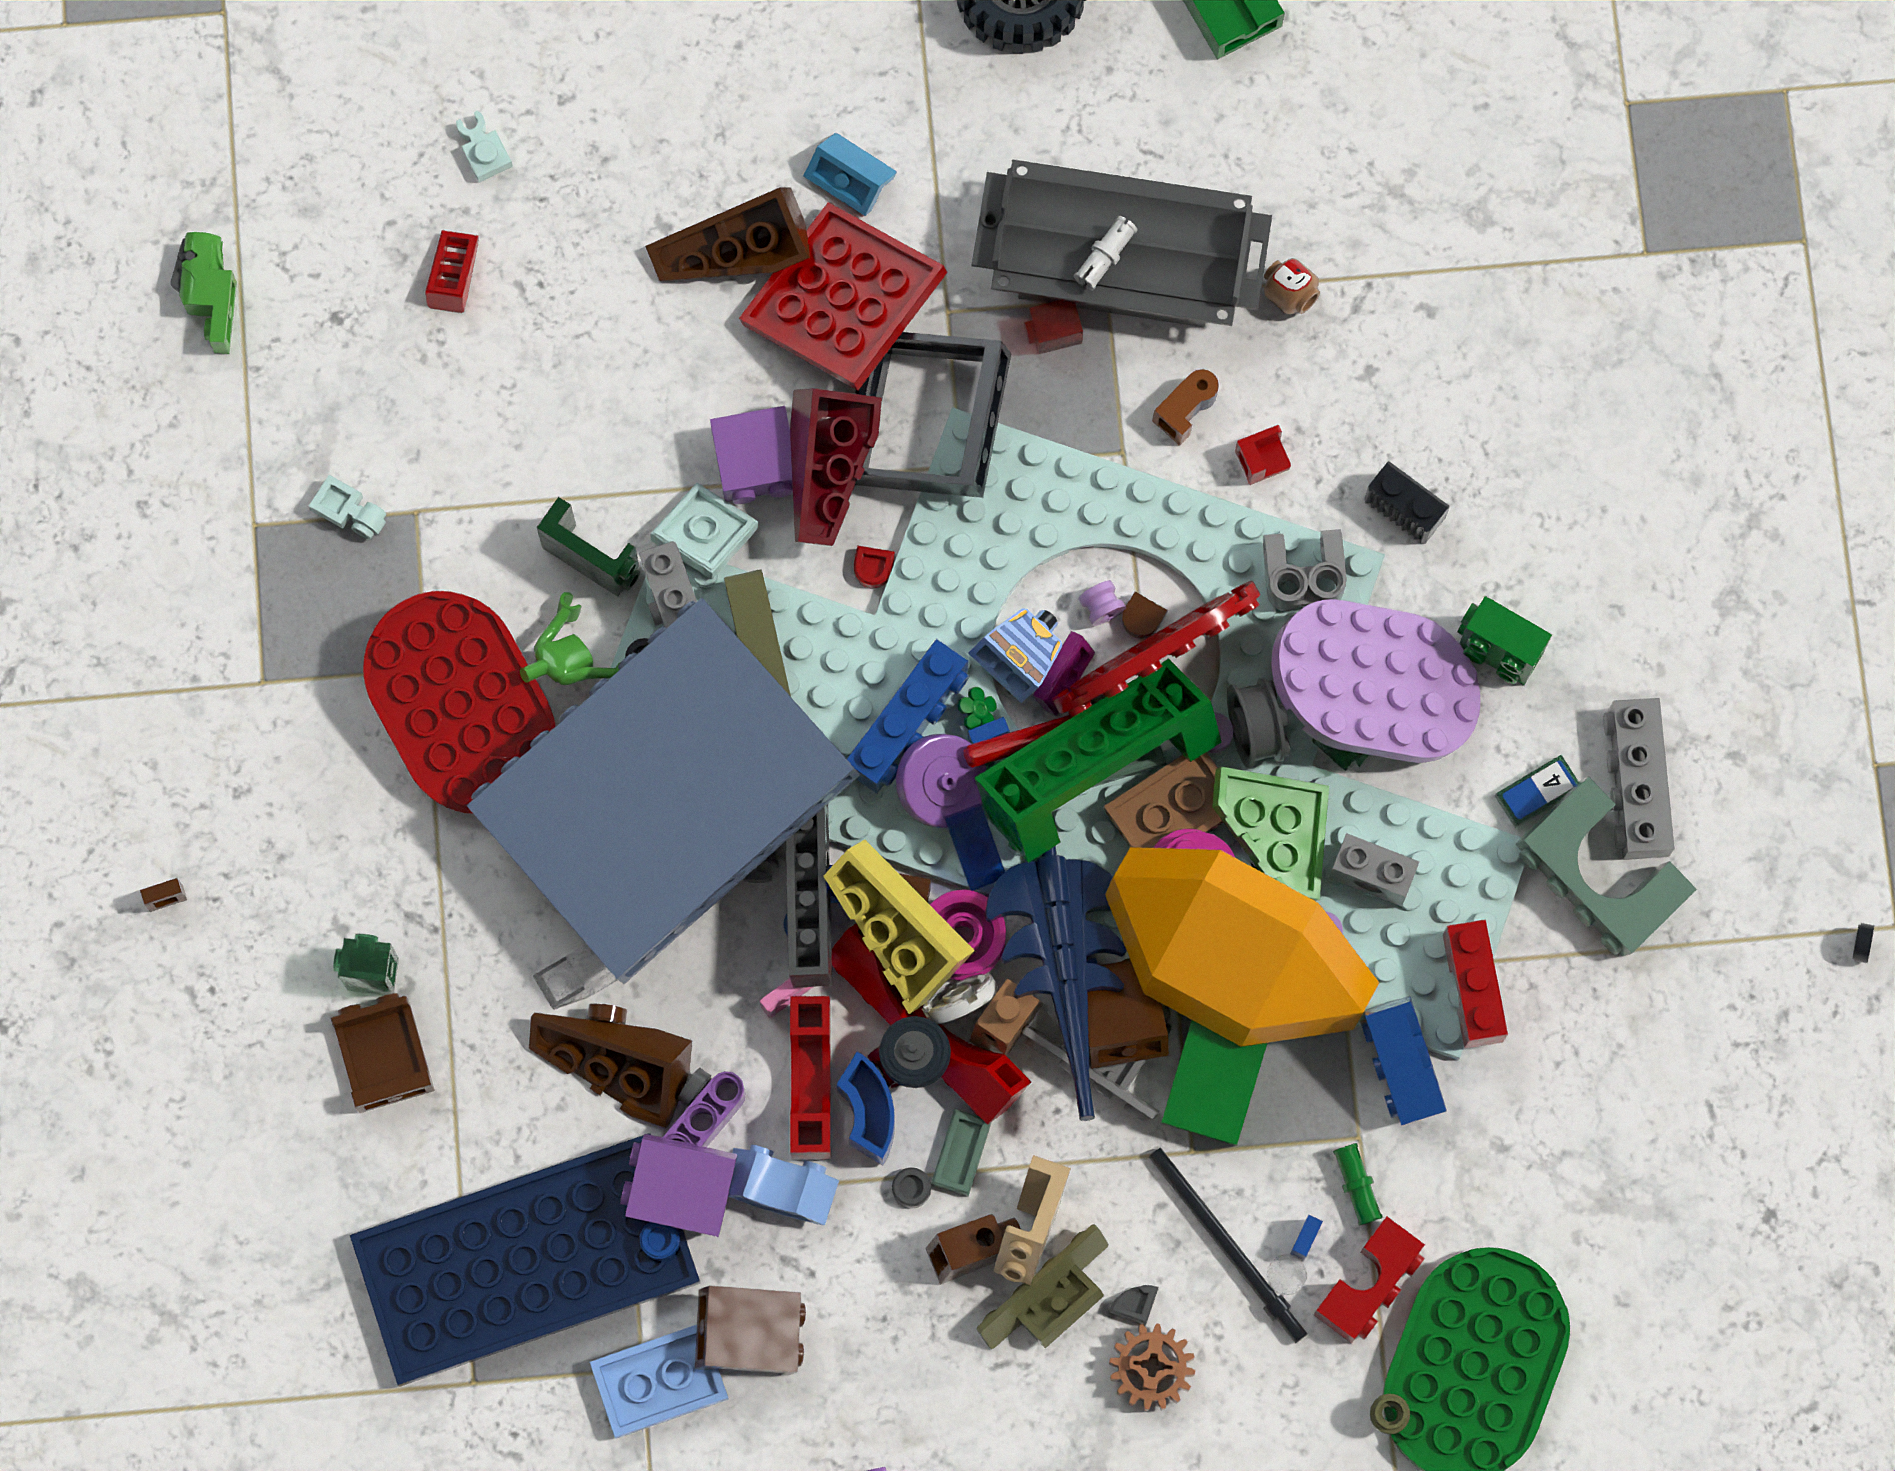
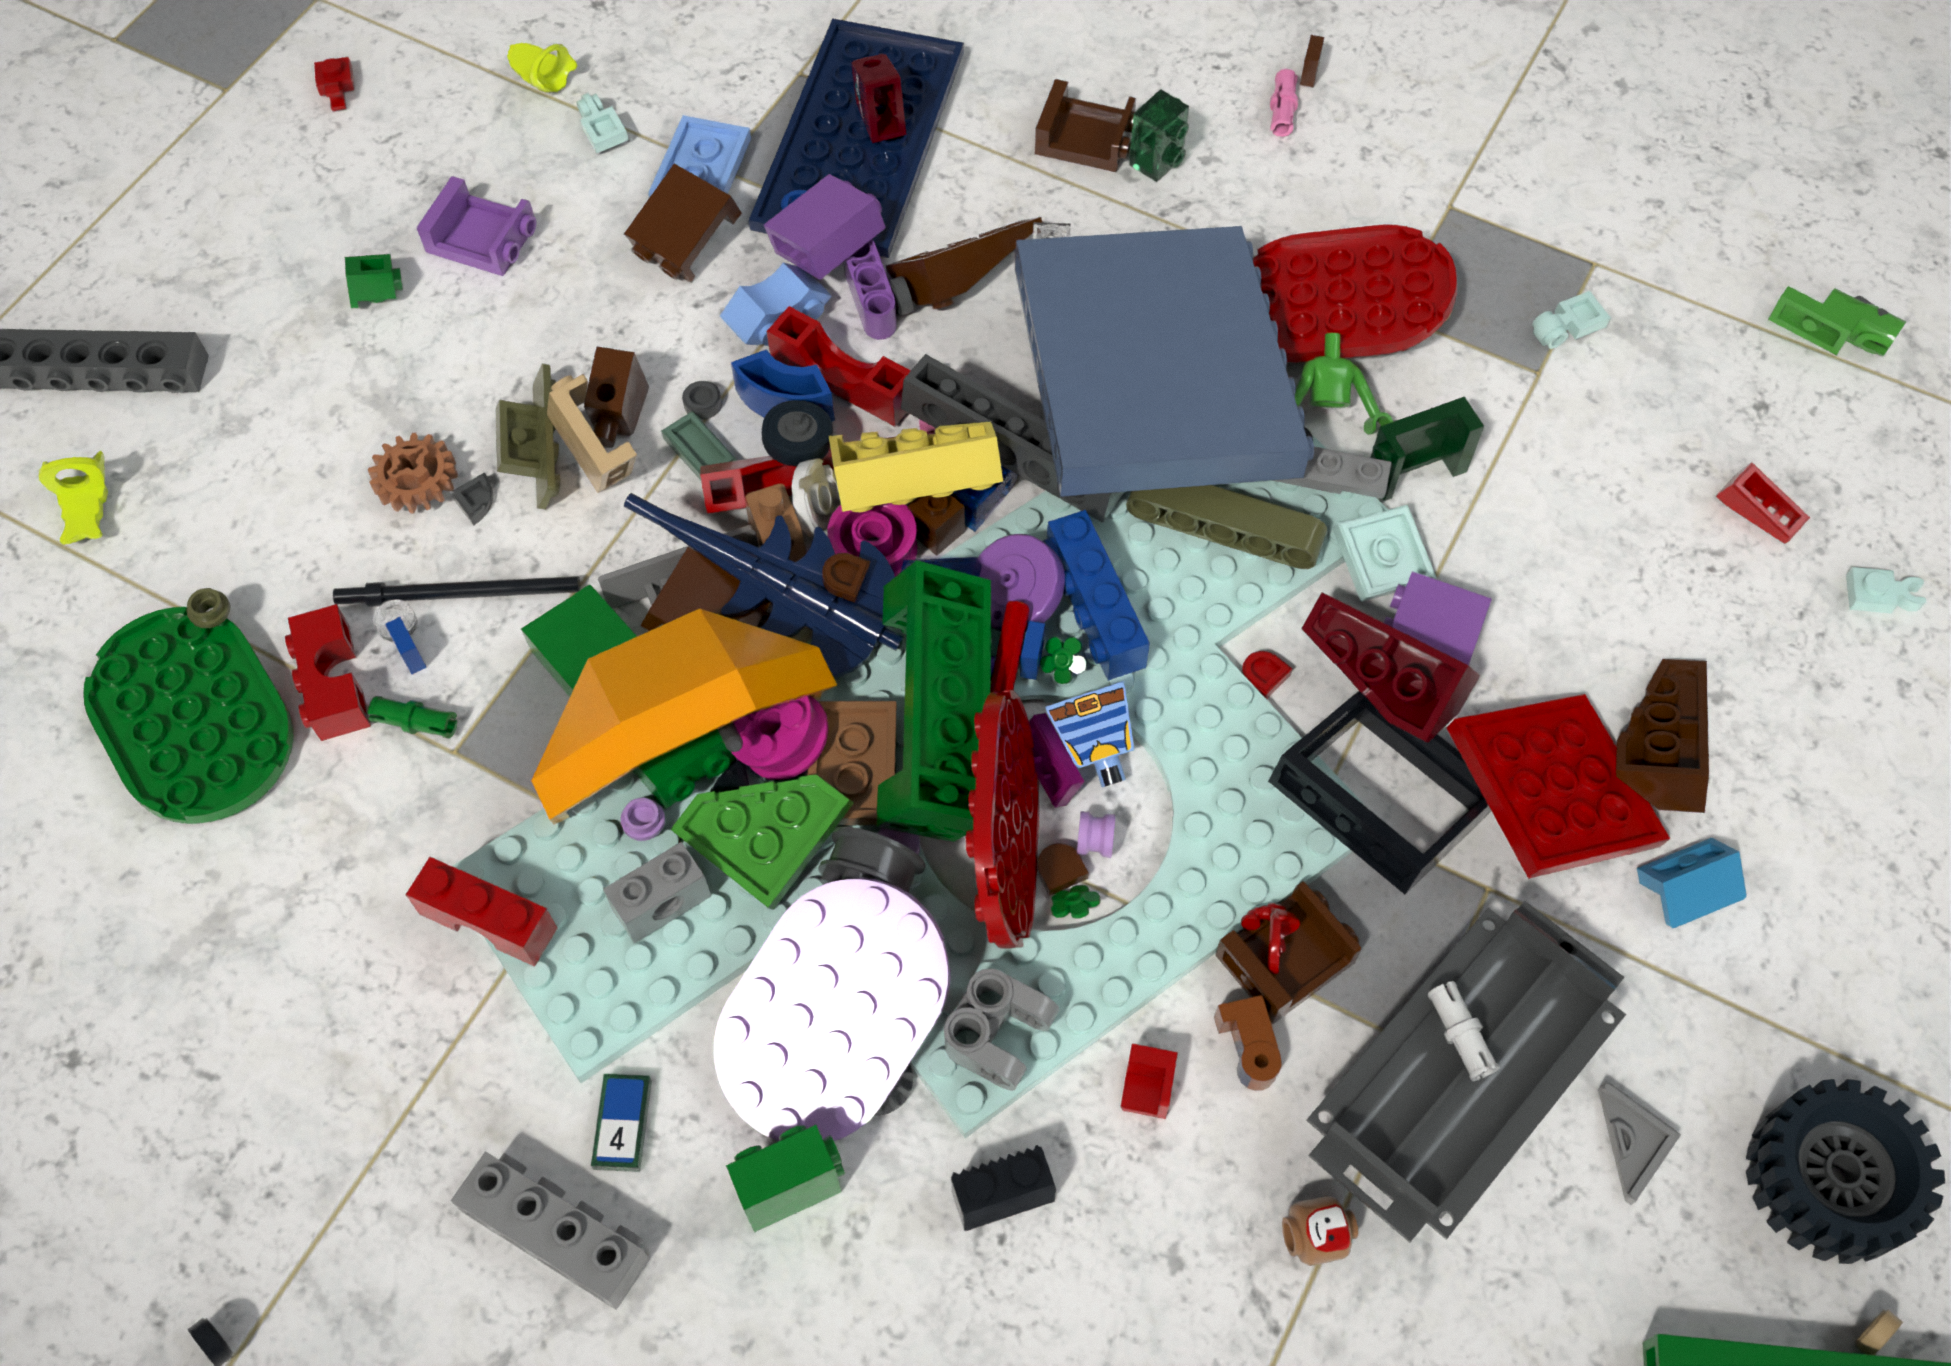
camera: 125 degrees right, 15 degrees down
(230, 894) = (1284, 102): none -> bright pink pin
(502, 1238) = (877, 84): none -> dark red torso
(607, 1013) = (1002, 272): reddish brown tile -> none
(1031, 908) = (844, 575): none -> reddish brown tile
(1054, 326) = (1411, 962): clear red brick -> none
(1080, 121) = (1637, 1140): none -> light grey tile
(1087, 431) = (1281, 925): none -> red piece
(1100, 416) = (1312, 956): none -> reddish brown panel
(1164, 587) = (1074, 902): none -> green plant
(1403, 1061) = (475, 807): blue wedge -> none
(1554, 848) = (433, 1105): sand green arch -> none

